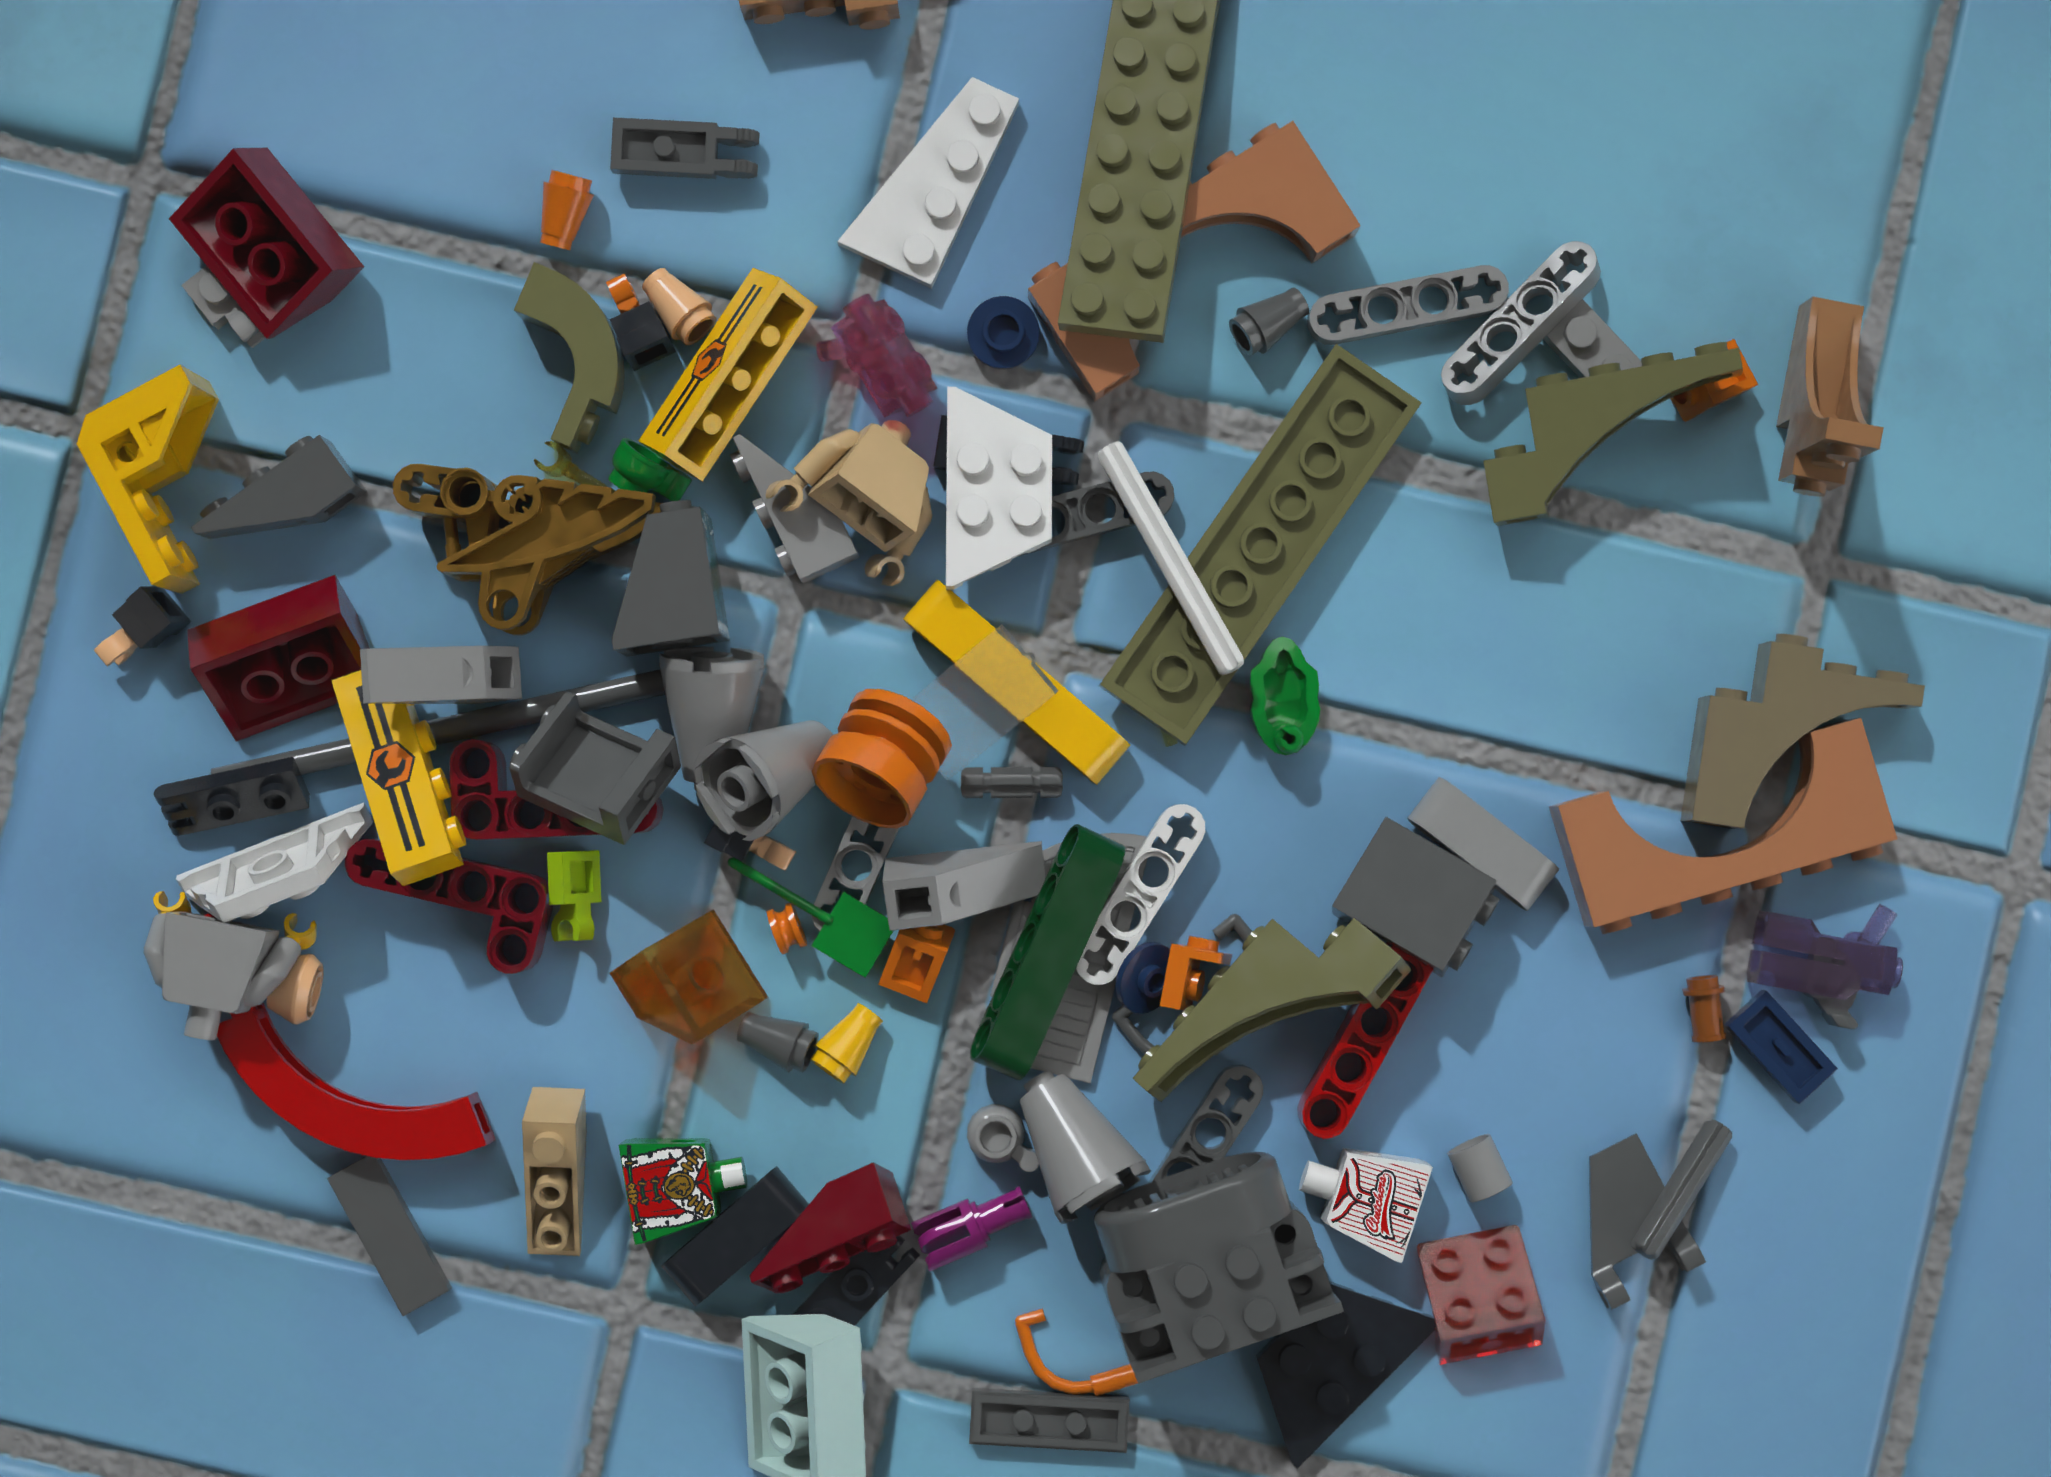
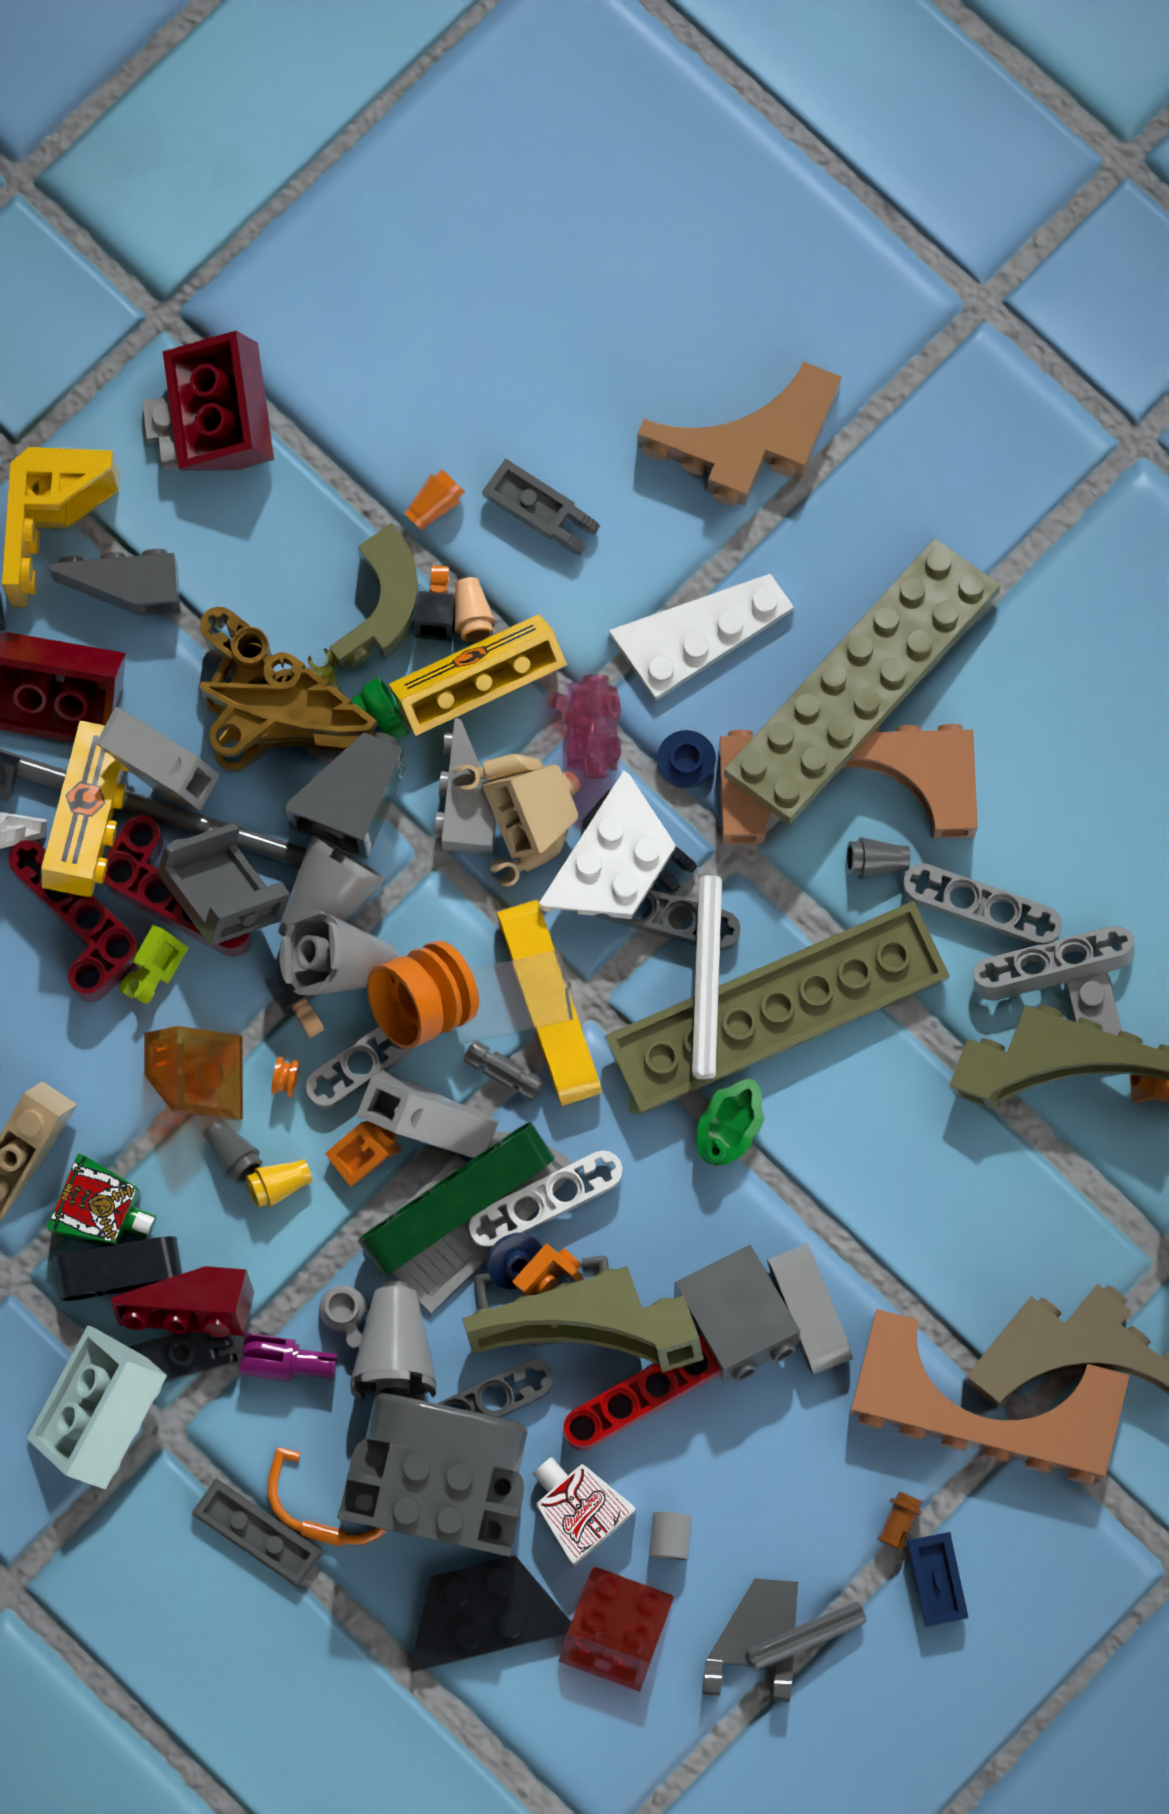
camera: 35 degrees right, 10 degrees down
(851, 932) = (328, 1105): green piece -> none
(1834, 964) = (1004, 1540): clear purple piece -> none

